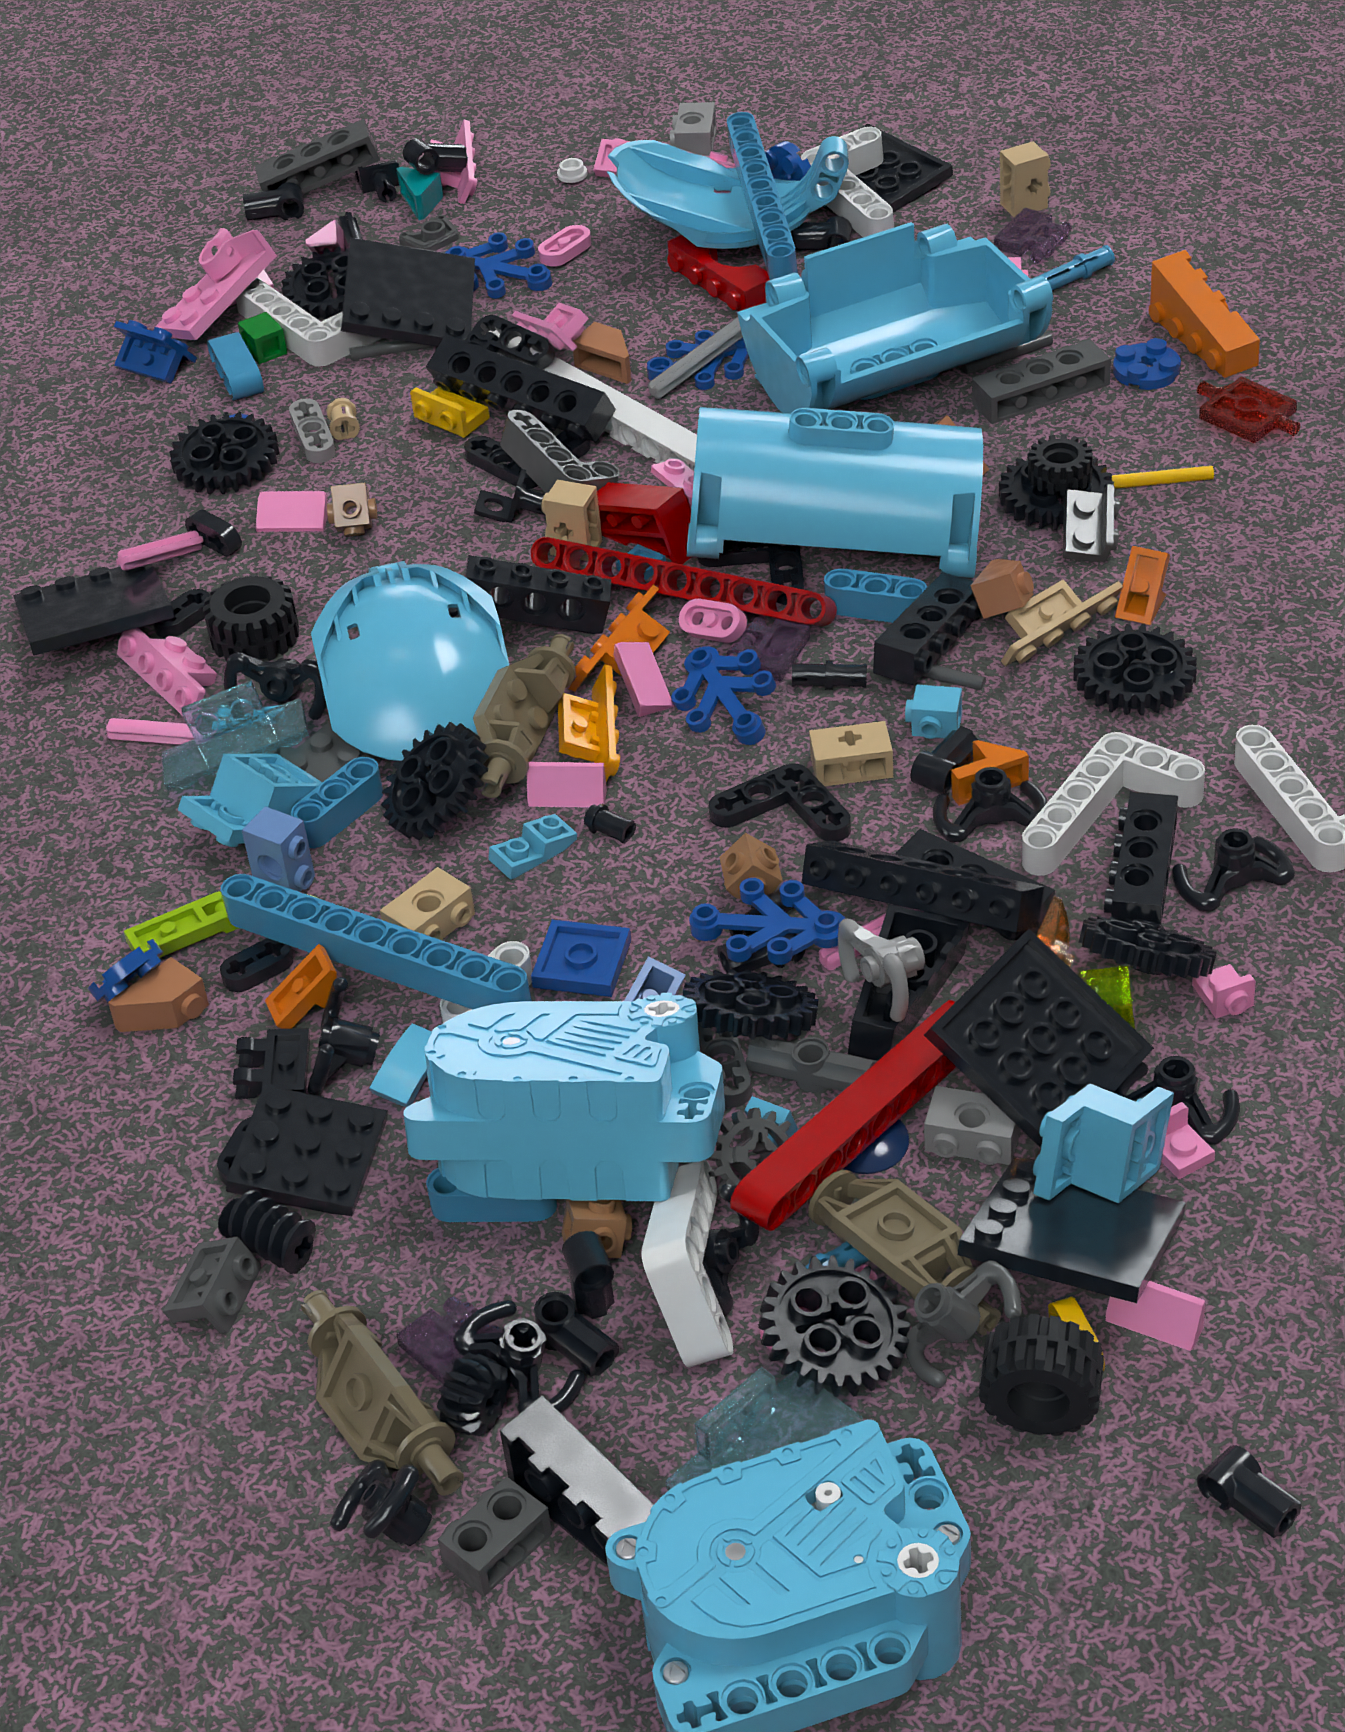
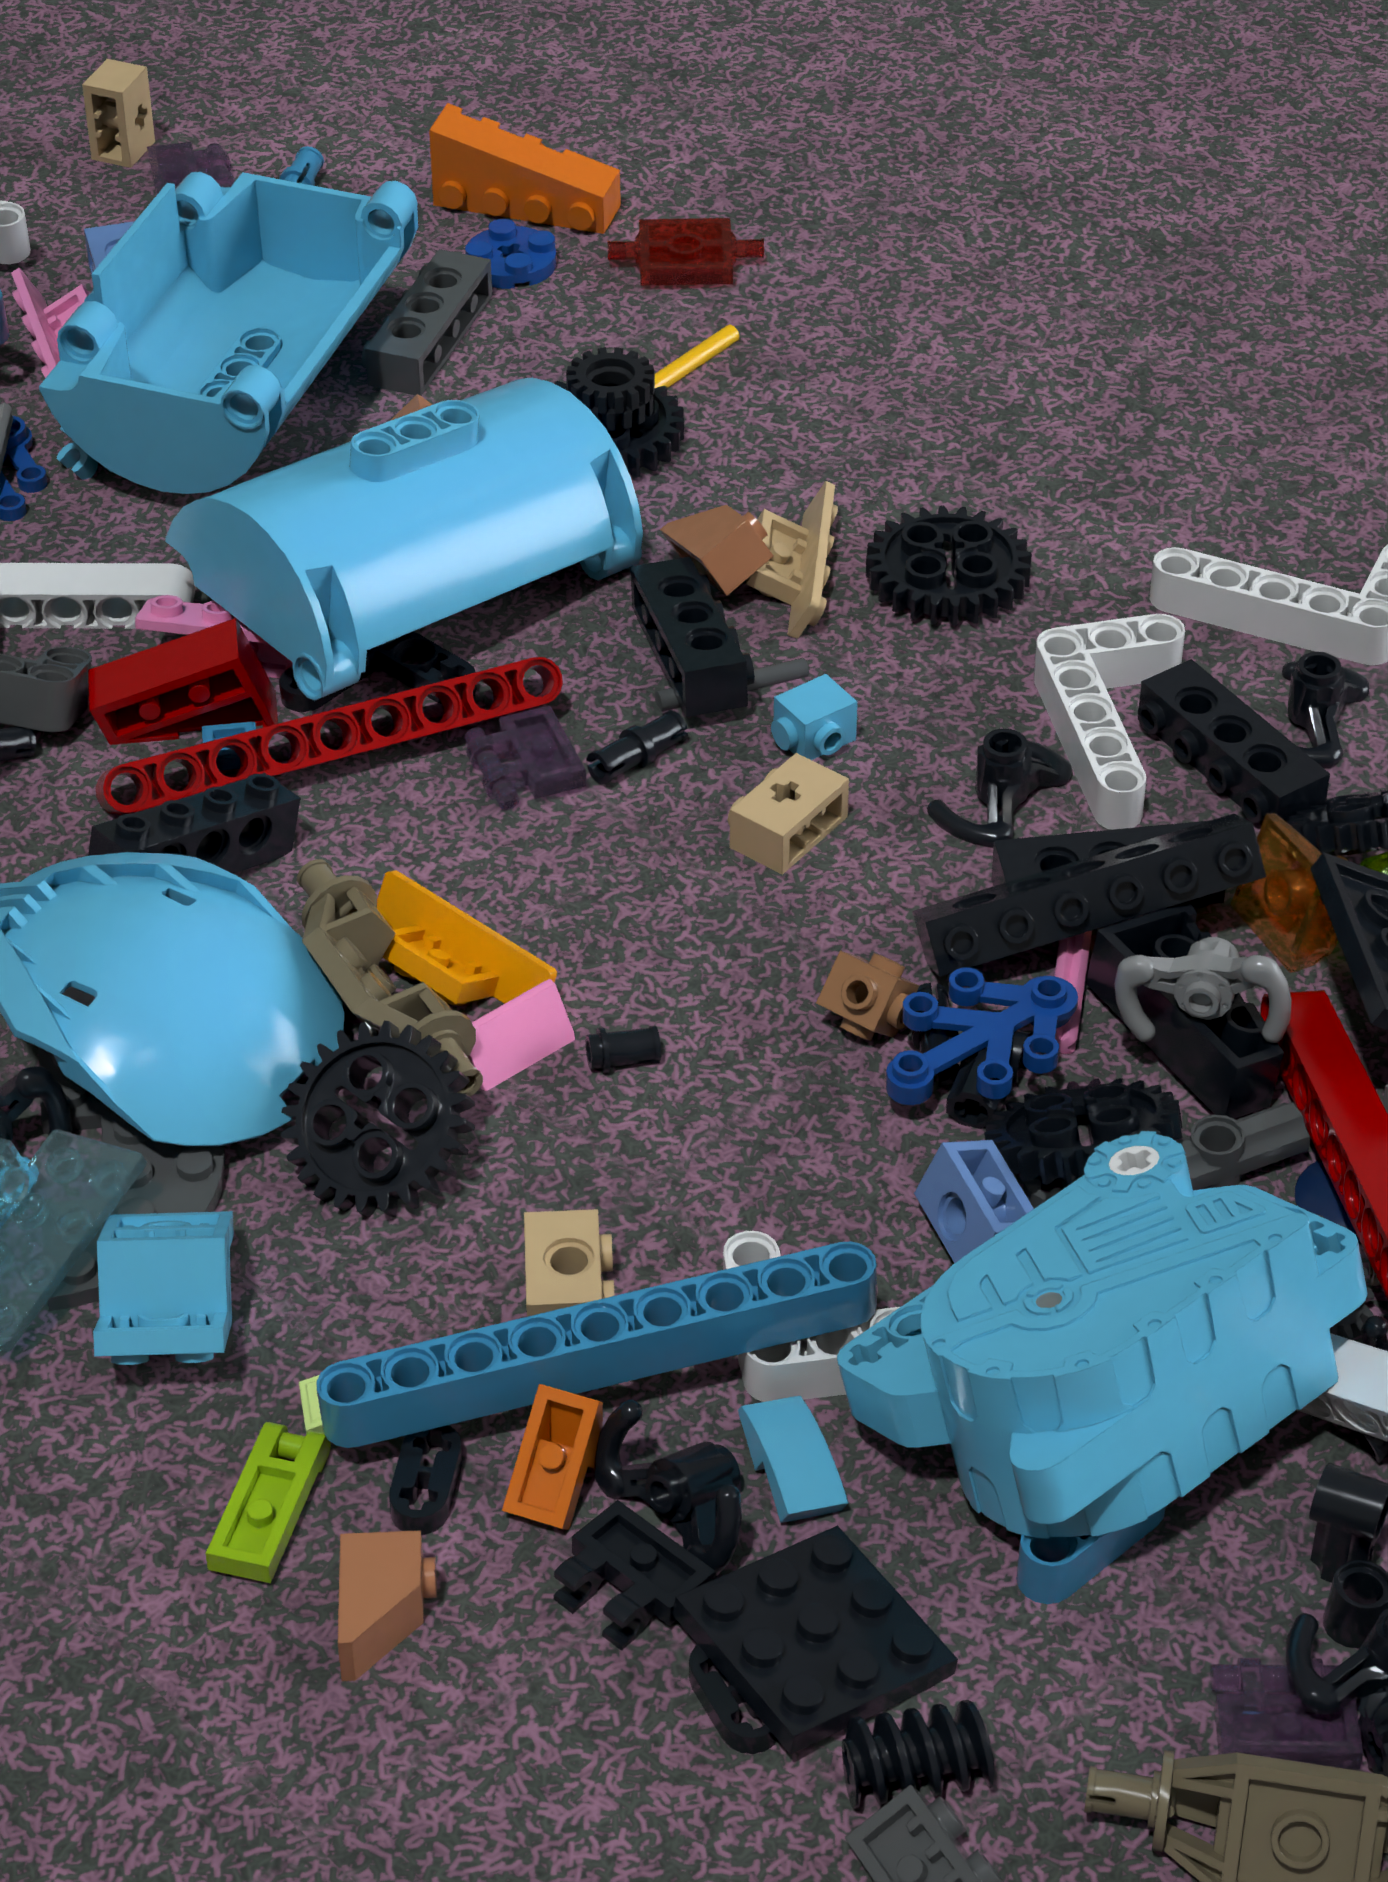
camera: 50 degrees left, 0 degrees up
(125, 970) = (307, 1595): blue plate -> none
(279, 849) = (302, 1318): medium blue brick -> none
(339, 800) = (262, 1226): dark azure beam -> none
(539, 842) = (565, 1129): medium azure slope -> none
(572, 514) = (107, 726): tan brick -> none
(581, 958) = (809, 1203): blue plate -> none
(601, 1217) = (1265, 1479): medium nougat brick -> none
(631, 628) = (347, 828): orange bracket -> none
(642, 677) = (437, 867): bright pink slope -> none
(705, 664) = (545, 826): blue plant -> none
(716, 620) = (428, 755): bright pink plate -> none
(737, 806) = (765, 897): black beam -> none
(871, 594) = (579, 631): dark azure beam -> none
(934, 768) = (896, 769): black piece -> none
(1010, 760) = (951, 746): orange slope -> none
(1090, 524) = (707, 438): bracket -> none
(1143, 585) = (845, 462): orange slope -> none

